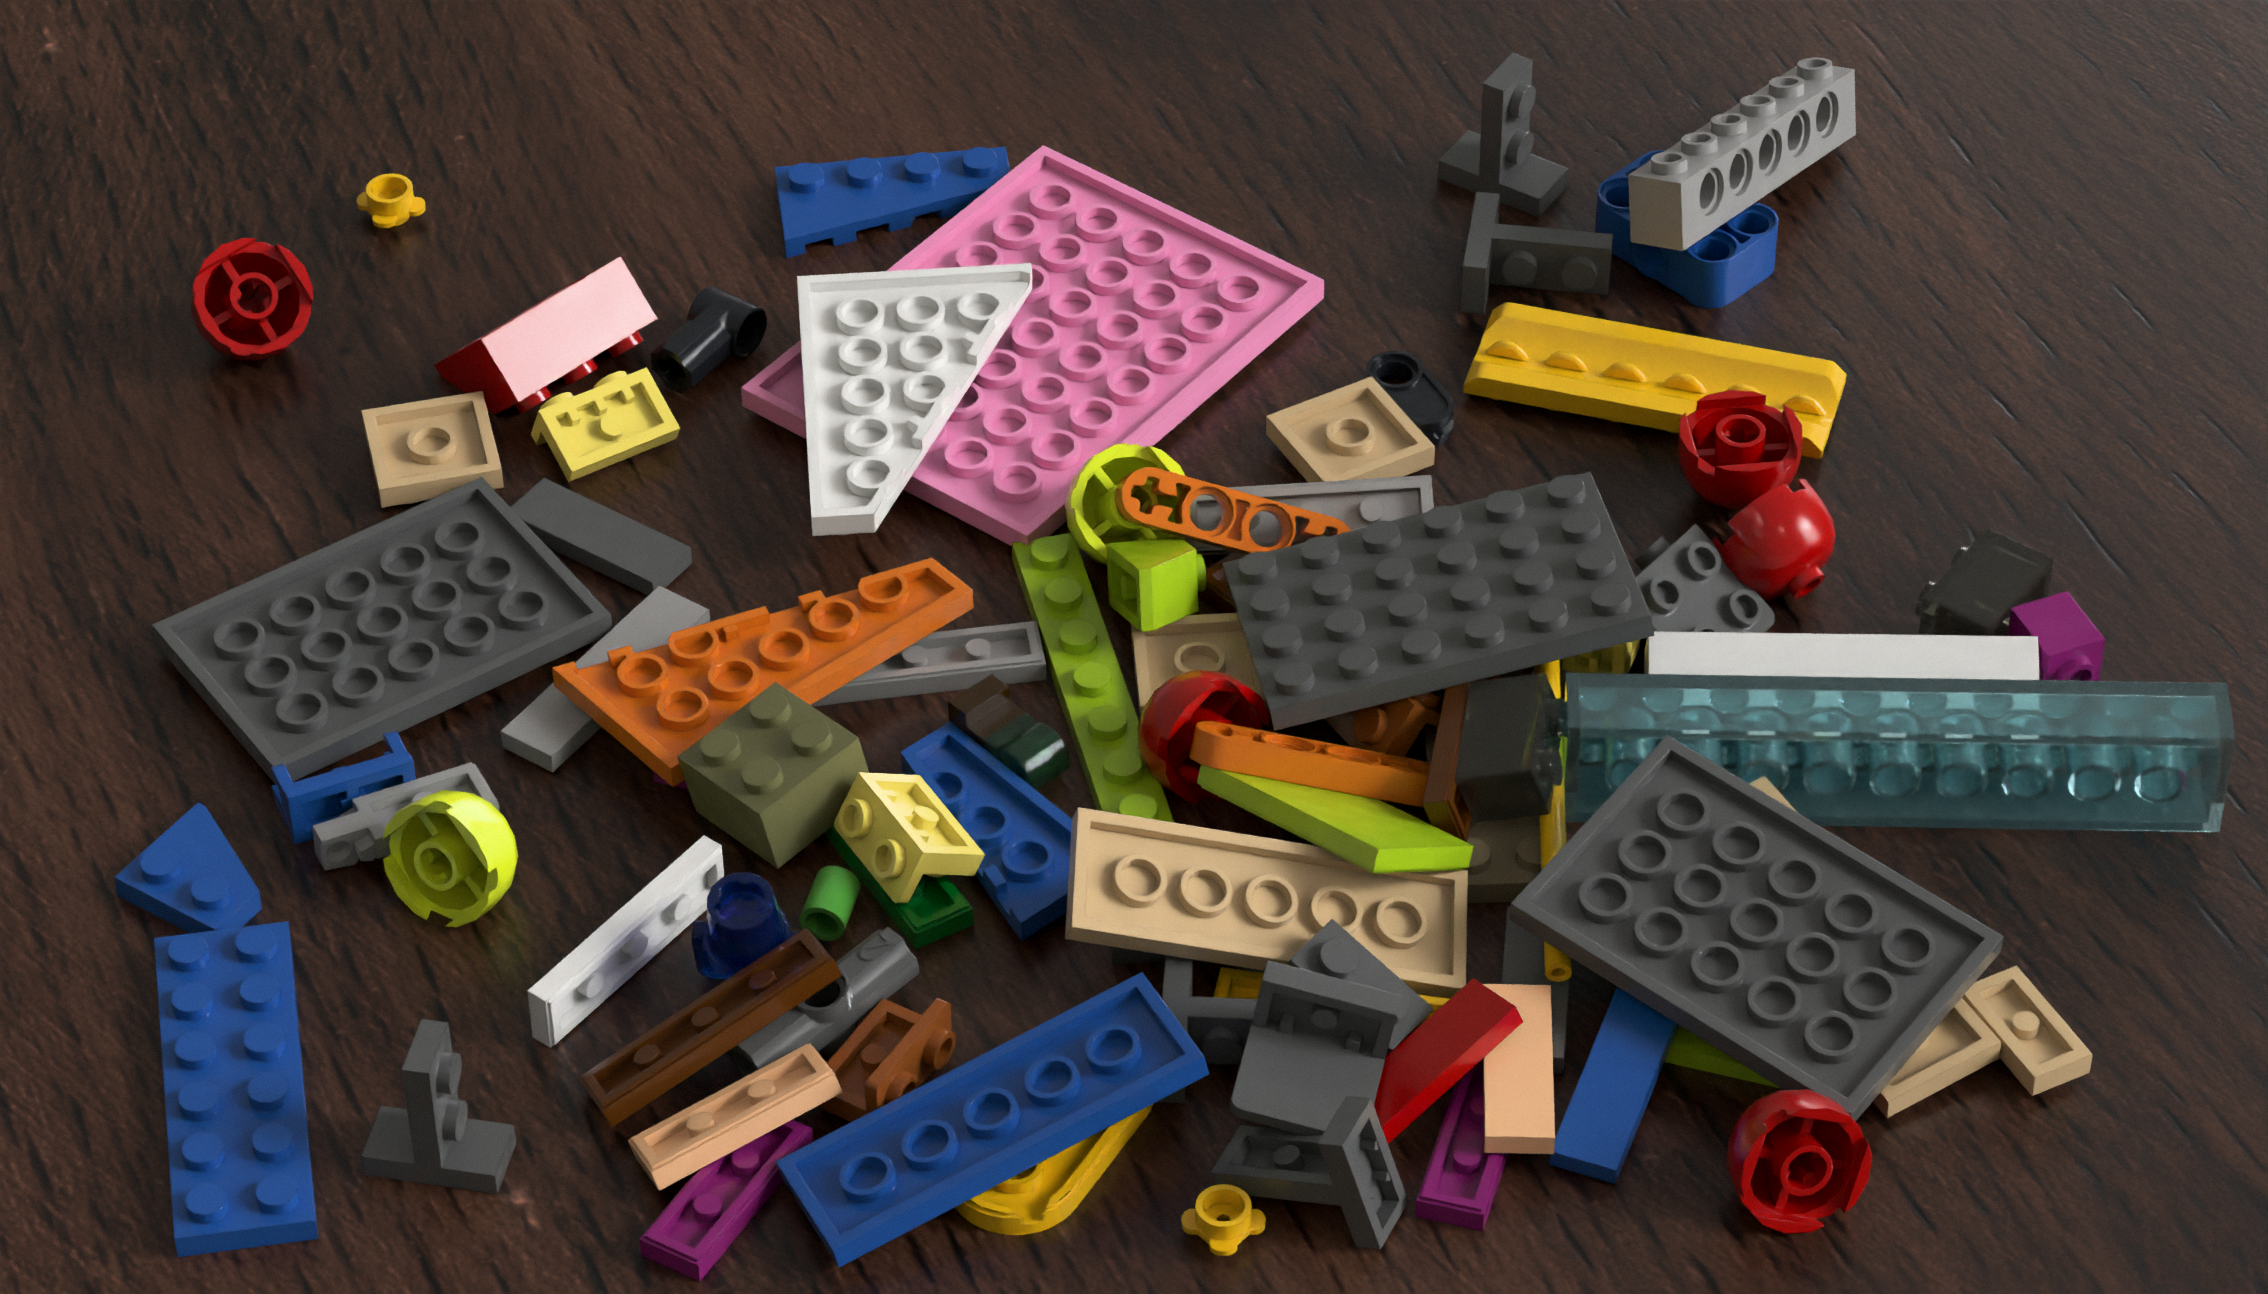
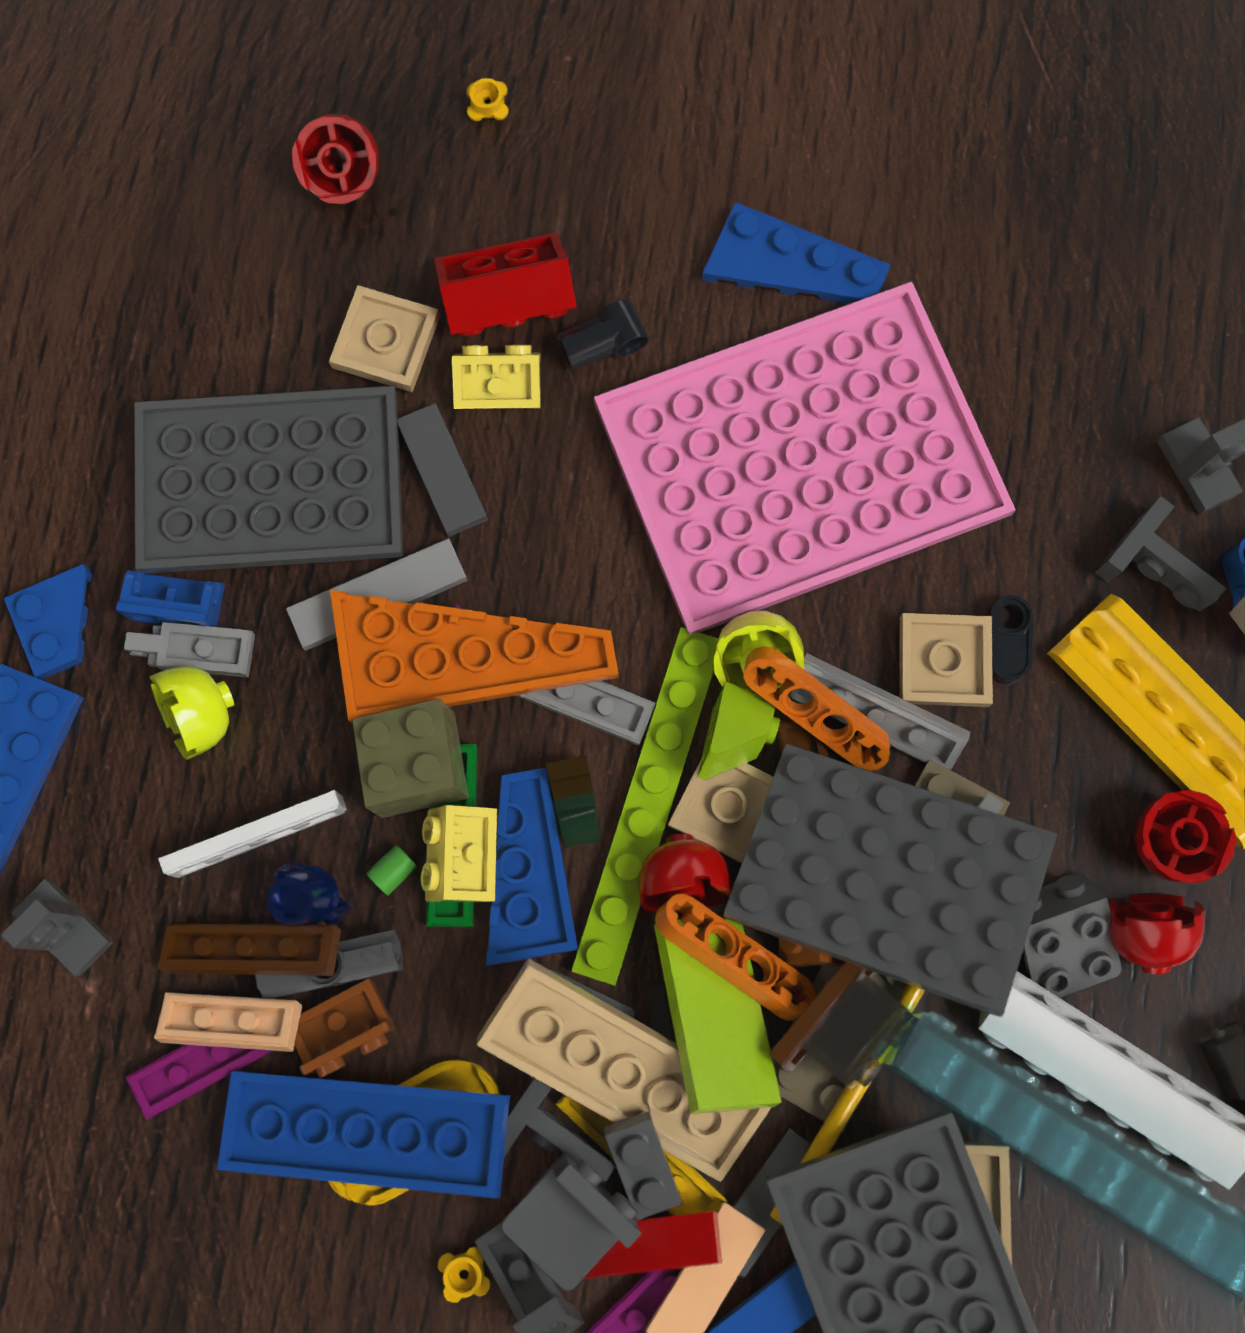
camera: 30 degrees right, 35 degrees up
(887, 371) = (683, 442): white wing -> none

